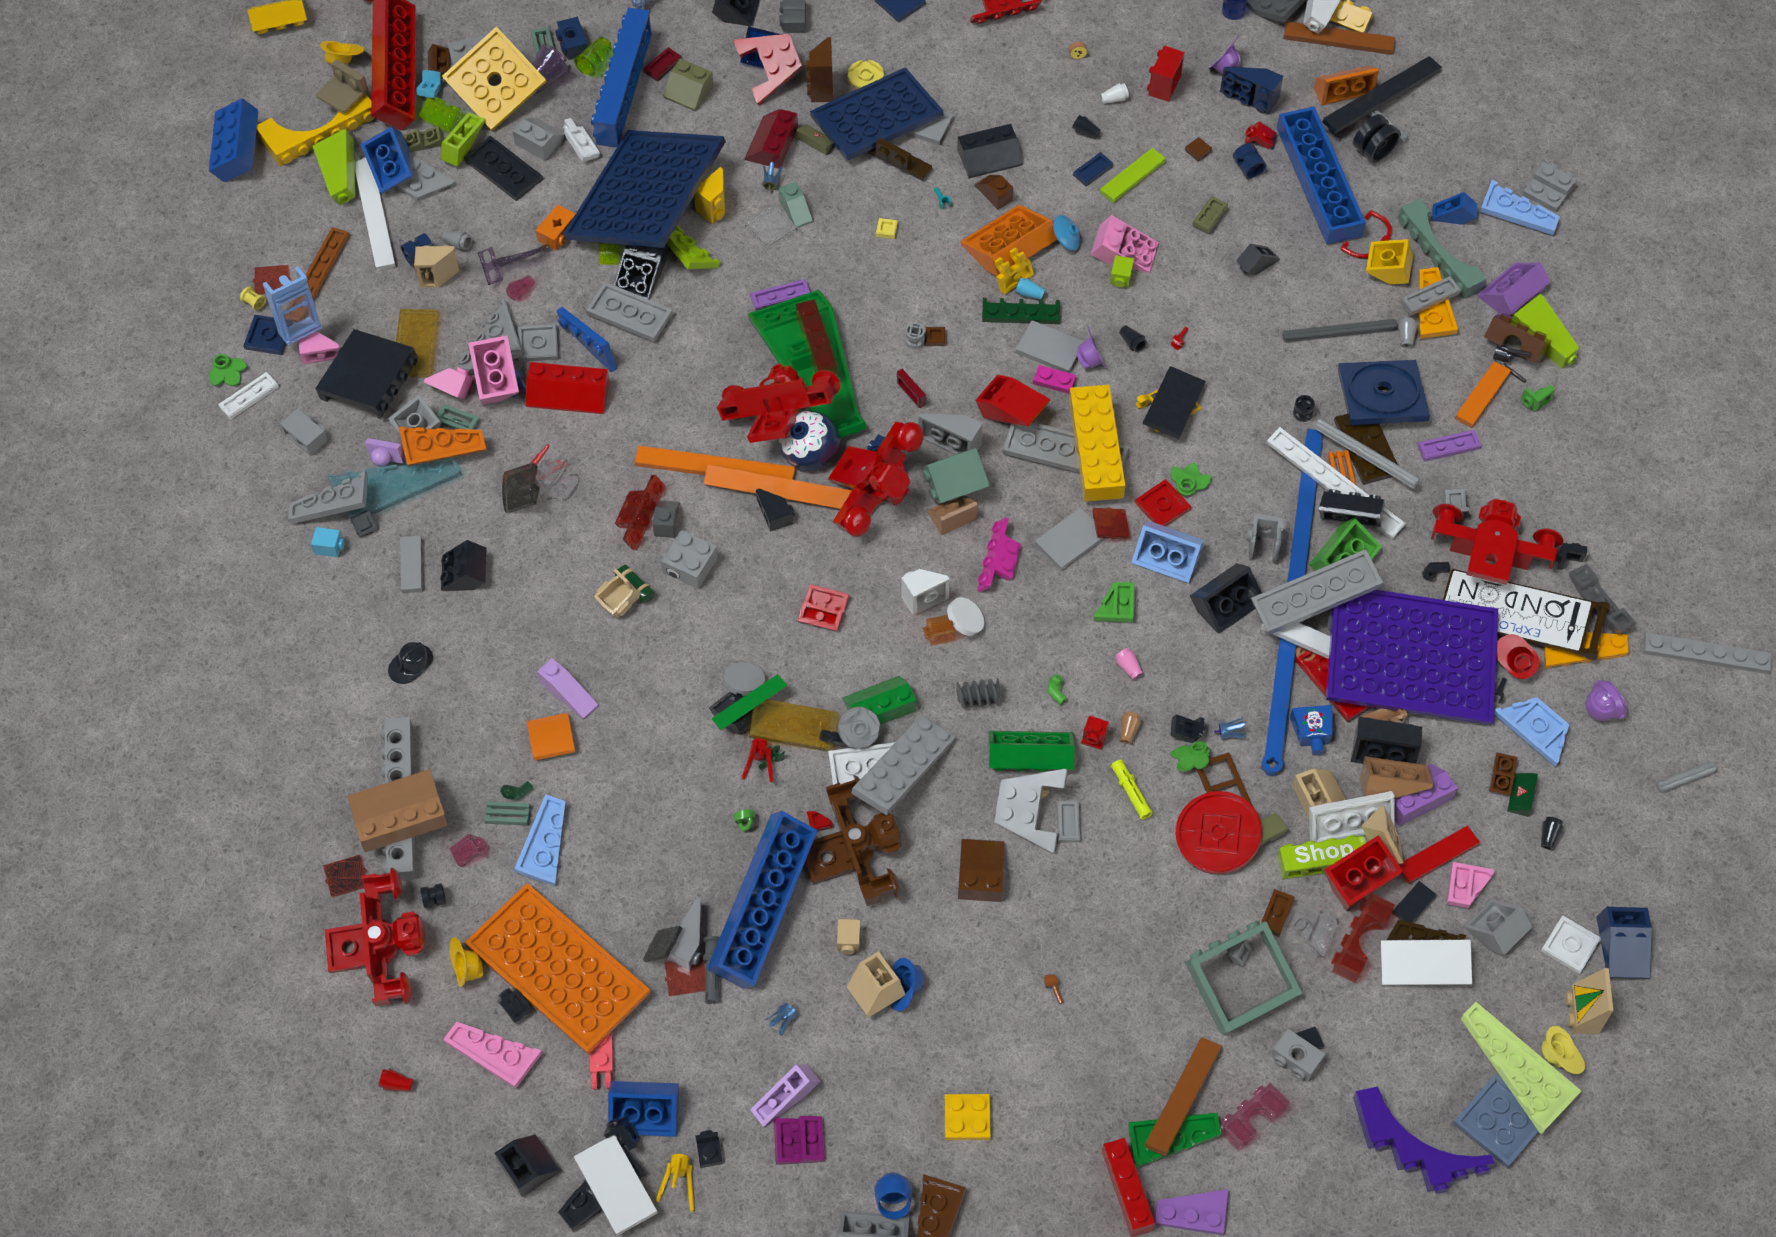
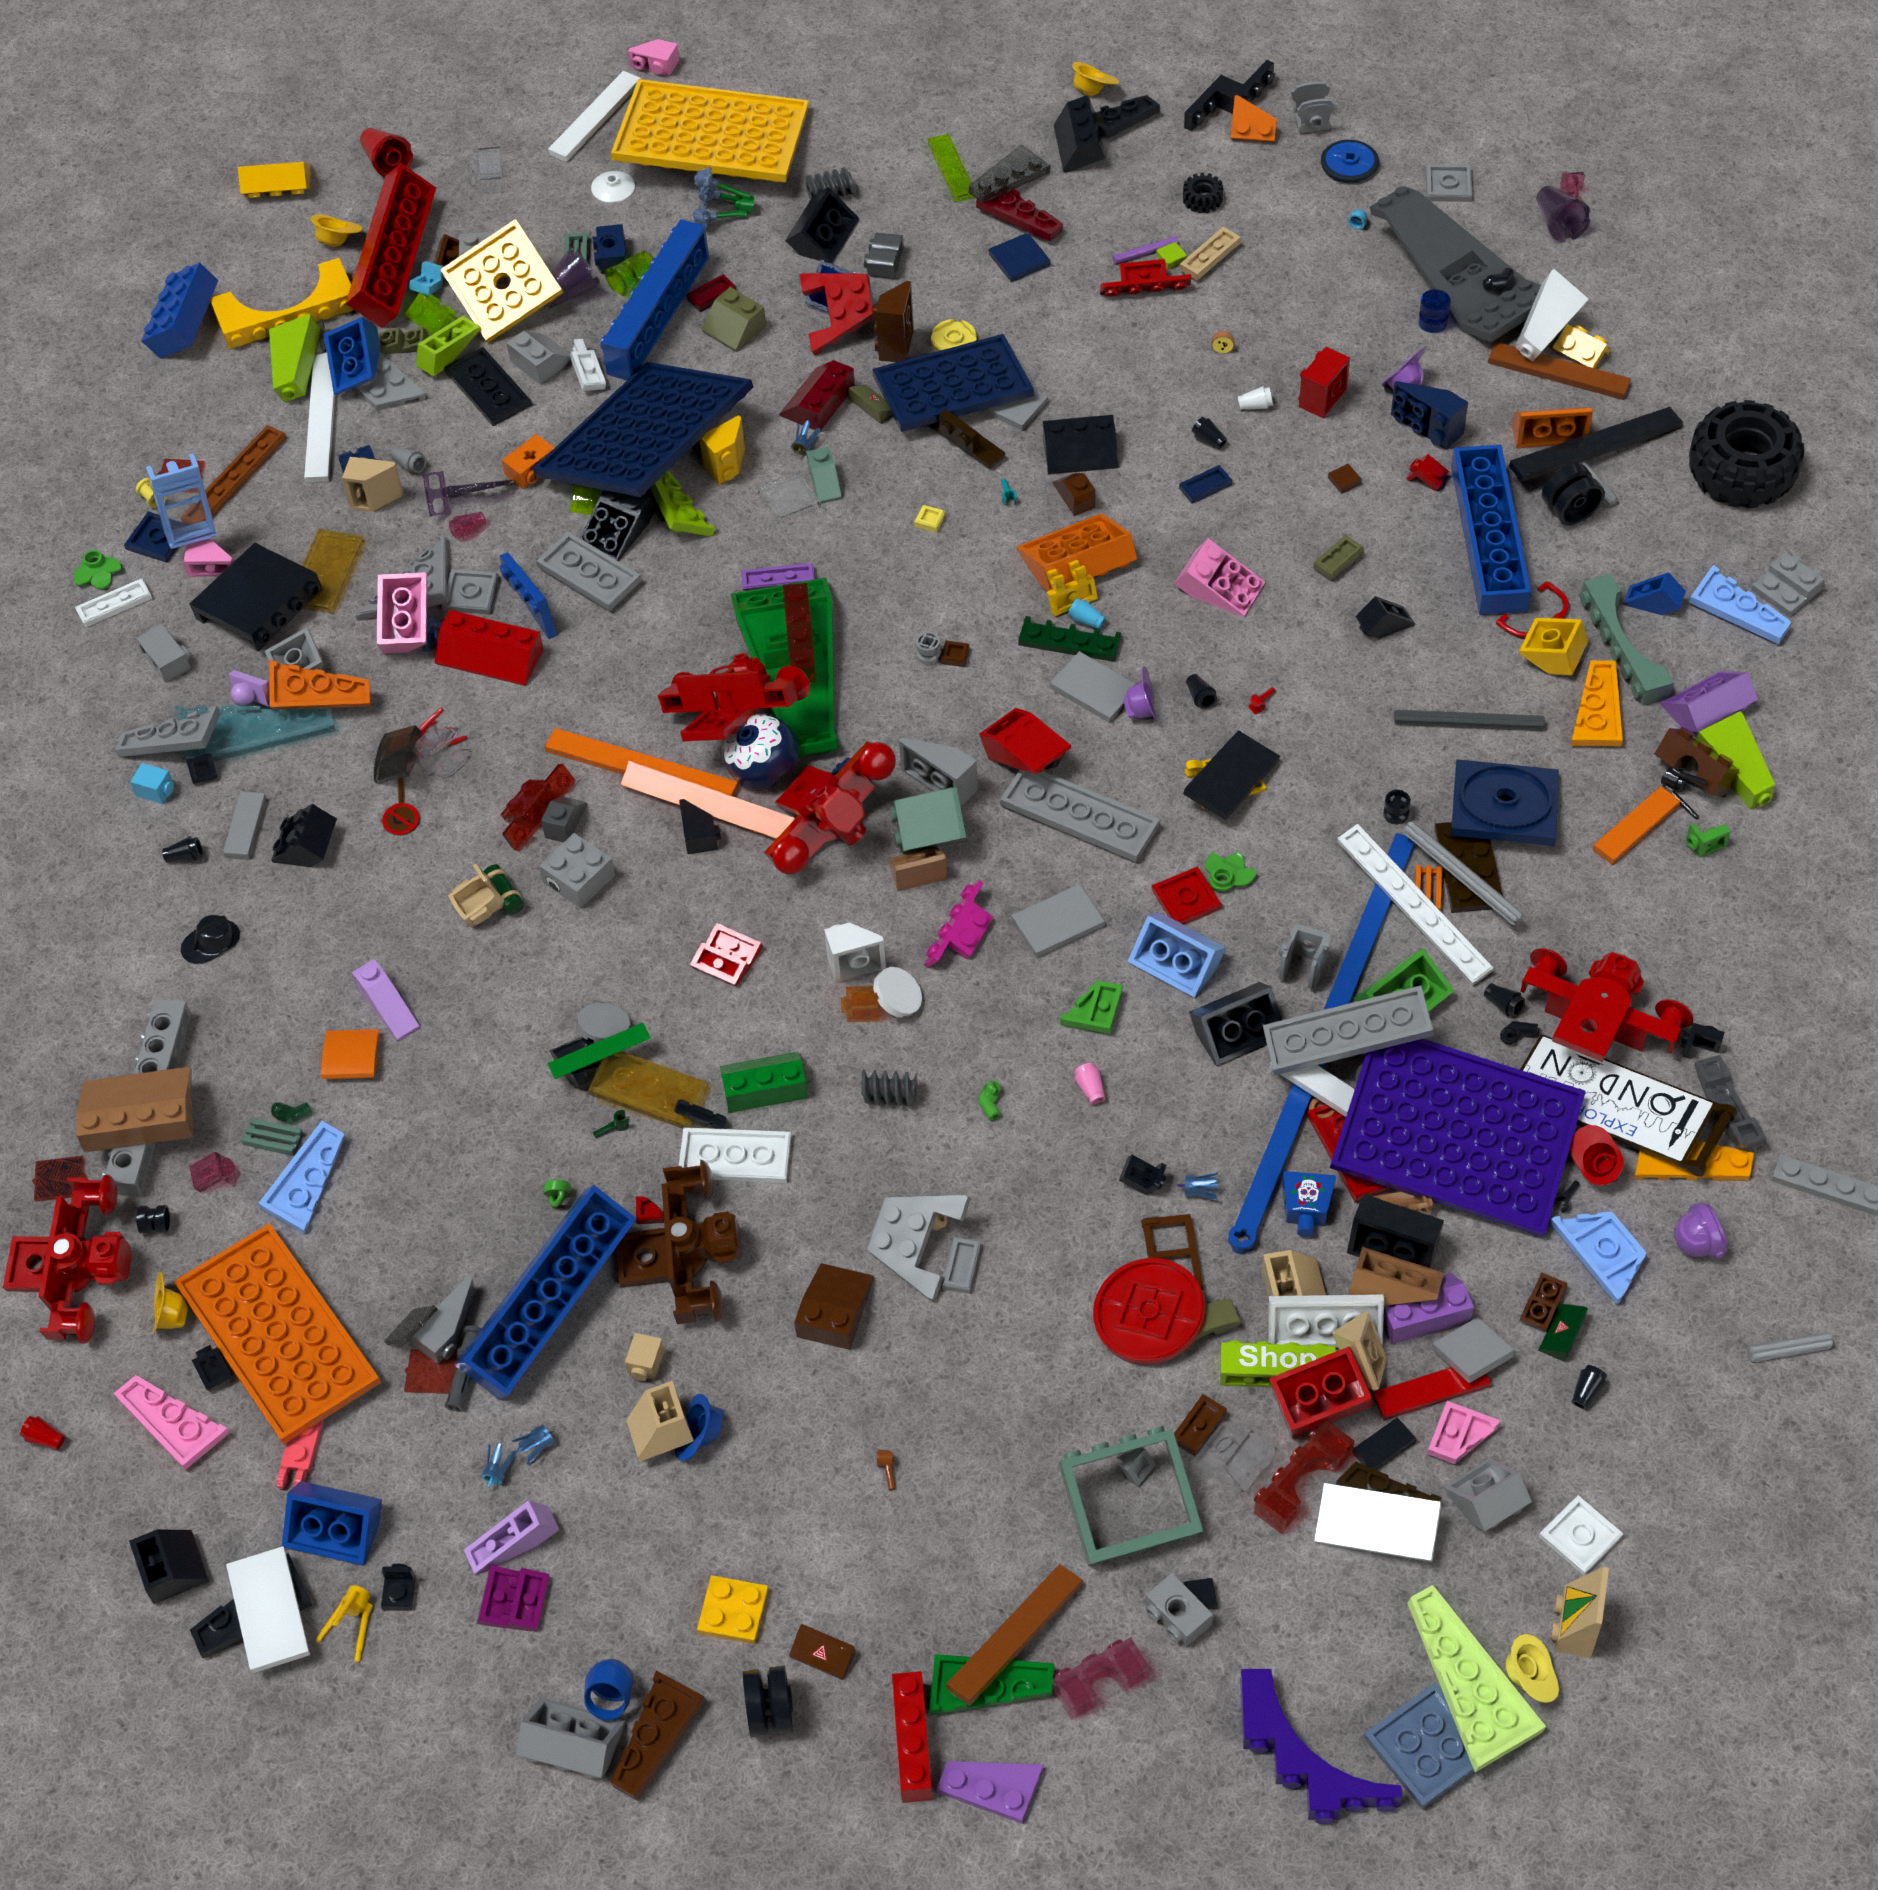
camera: 15 degrees right, 5 degrees down
(344, 88) = (322, 269): dark tan bracket -> none
(368, 593) = (184, 850): none -> black cone
(445, 408) = (368, 668): sand green tile -> none
(451, 381) = (352, 620): bright pink slope -> none
(534, 538) = (400, 817): none -> piece
(626, 1133) = (299, 1545): black bracket -> none
(756, 1045) = (492, 1472): none -> flat silver piece
(758, 751) = (595, 1113): red plant -> none
(858, 727) = (724, 1103): light grey tile -> none
(903, 765) = (767, 1158): light grey plate -> none
(911, 388) = (906, 709): dark red tile -> none
(1016, 1182) = (768, 1701): none -> black wheel
(1031, 750) = (935, 1169): green slope -> none
(1043, 1136) = (822, 1652): none -> reddish brown slope
(1054, 379) = (1089, 726): dark pink plate -> none
(1067, 232) = (1150, 553): dark azure dish -> none
(1095, 732) = (1023, 1160): red brick -> none
(1096, 443) = (1117, 808): yellow brick -> none
(1111, 523) = (1113, 909): clear red piece -> none
(1121, 271) = (1207, 609): lime brick -> none
(1127, 781) = (1049, 1228): neon yellow pin -> none
(1129, 725) = (1070, 1160): medium nougat cone -> none
(1132, 175) = (1253, 498): lime tile -> none
(1192, 756) = (1141, 1210): bright green plate -> none
(1249, 161) = (1404, 499): dark blue wheel -> none
(1344, 507) = (1411, 933): black slope -> none
(1407, 331) = (1555, 734): light grey cone -> none
(1419, 546) = (1507, 1000): none -> black cone
(1430, 295) = (1596, 693): light grey tile -> none
(1449, 445) = (1576, 881): medium lavender tile -> none
(1457, 498) = (1568, 948): light grey bracket -> none
(1462, 820) = (1473, 1350): none -> light grey tile
(1495, 106) = (1740, 476): none -> black tyre
(1626, 941) = (1653, 1543): dark blue slope -> none

